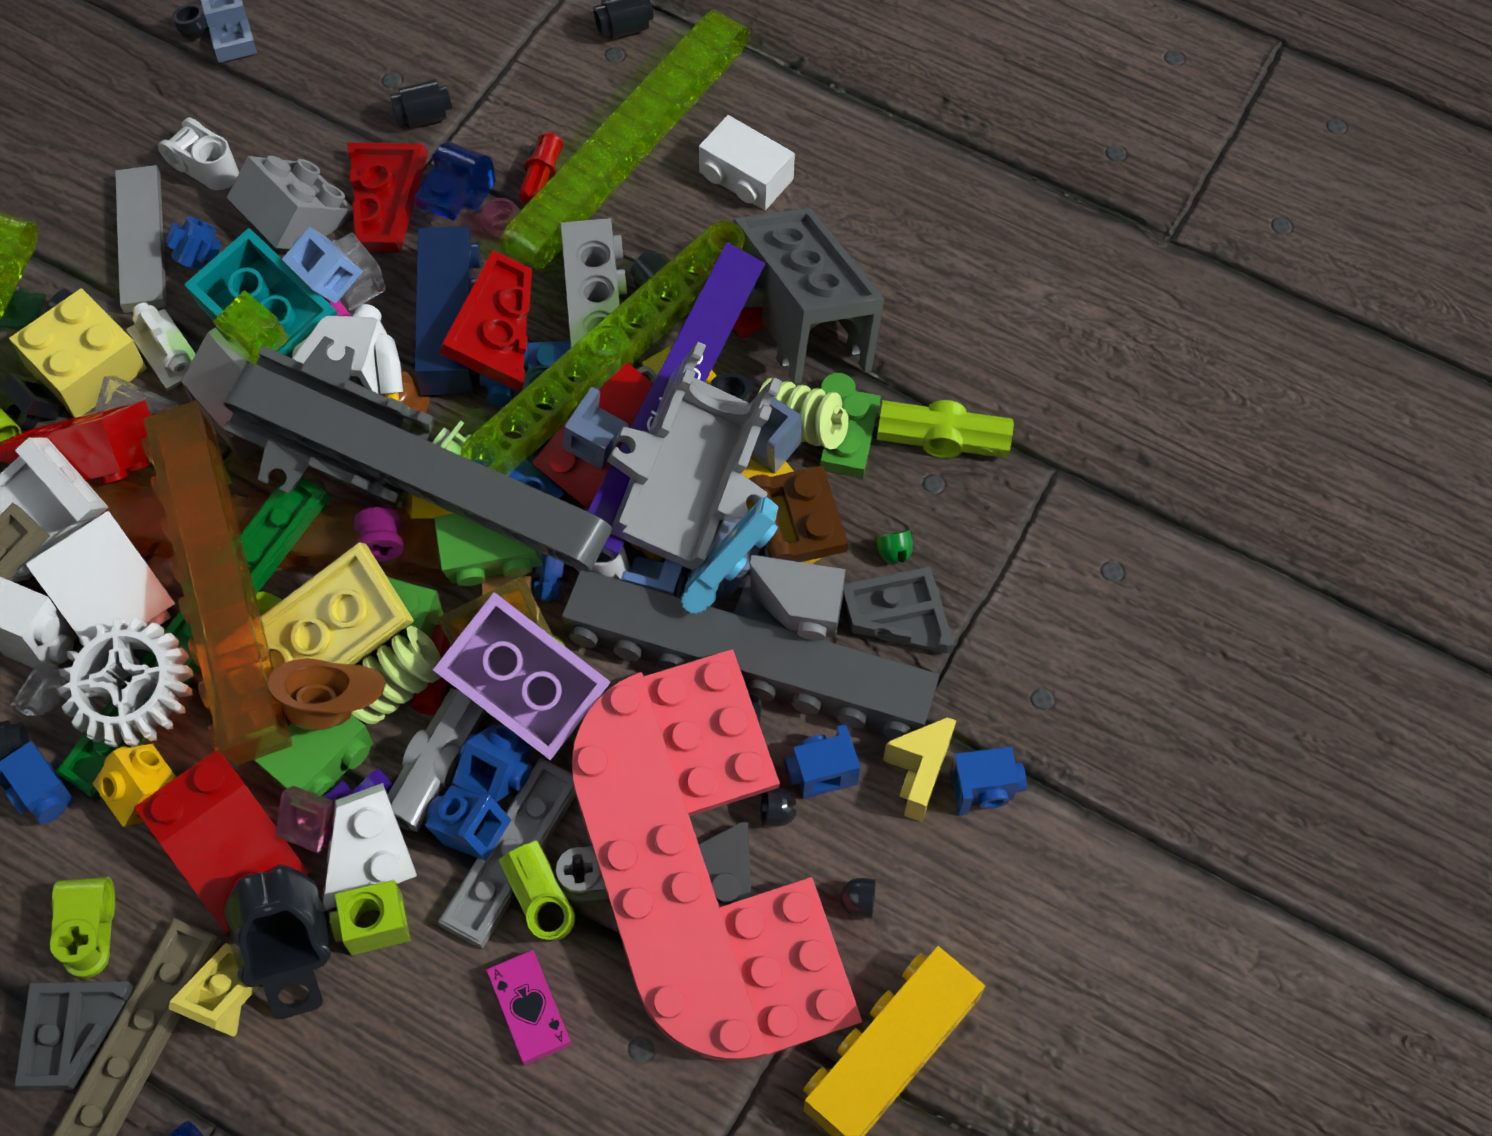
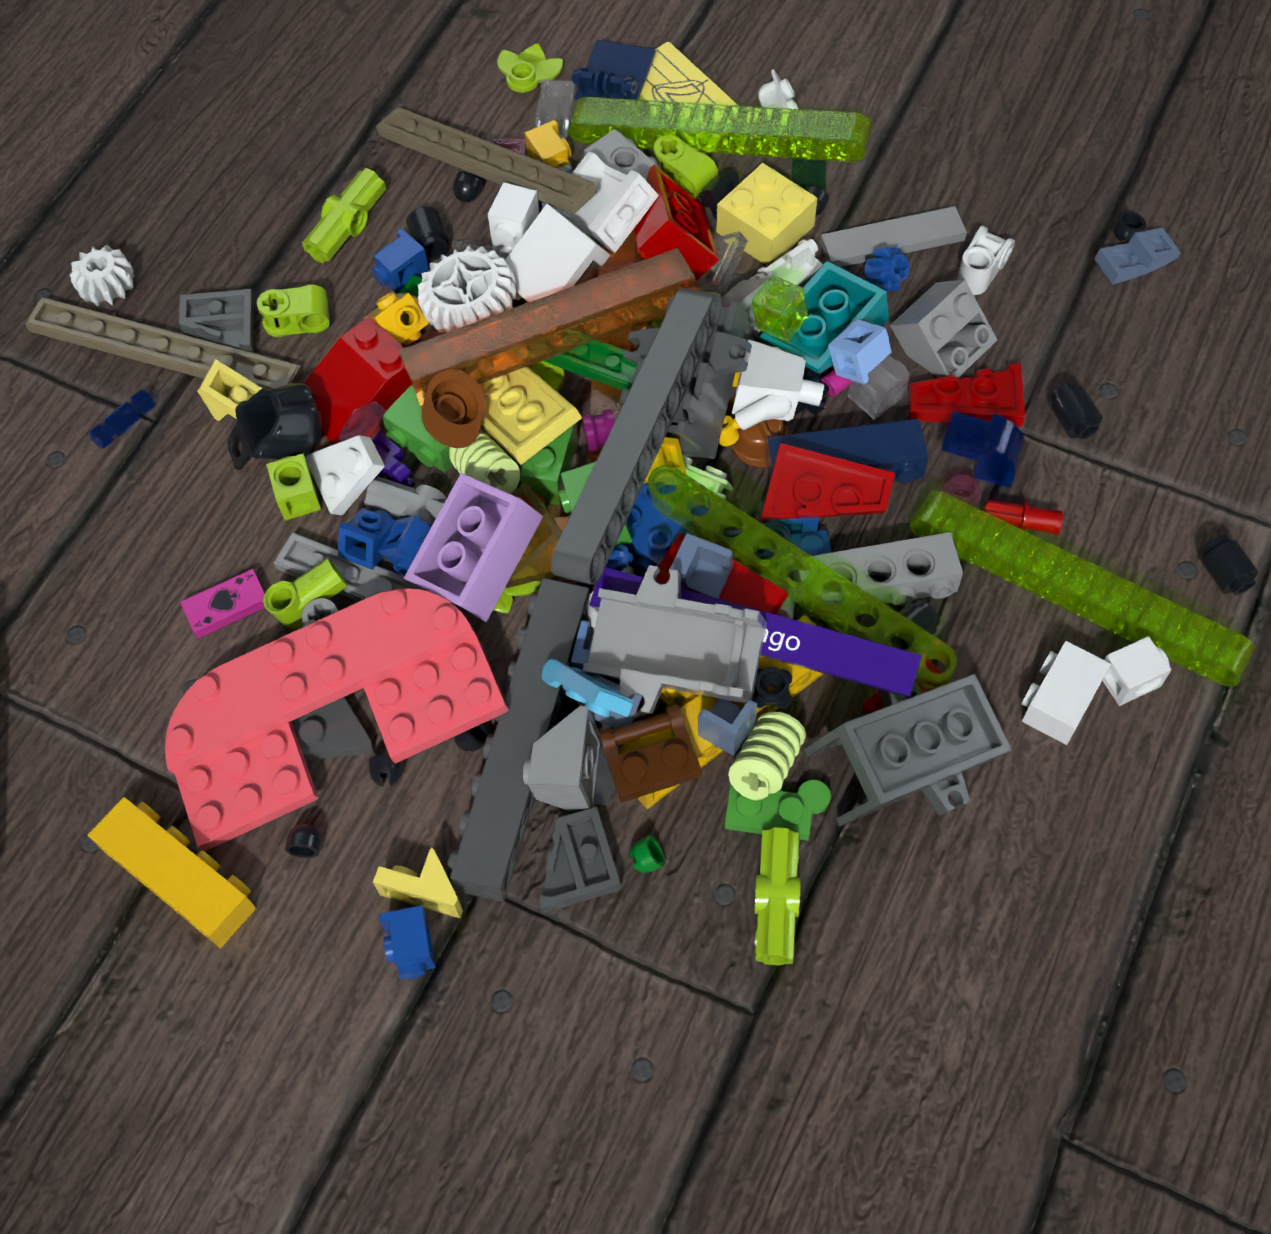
camera: 90 degrees right, 0 degrees up
(728, 96) = (1136, 670): none -> white brick
(823, 764) = (423, 803): blue brick -> none

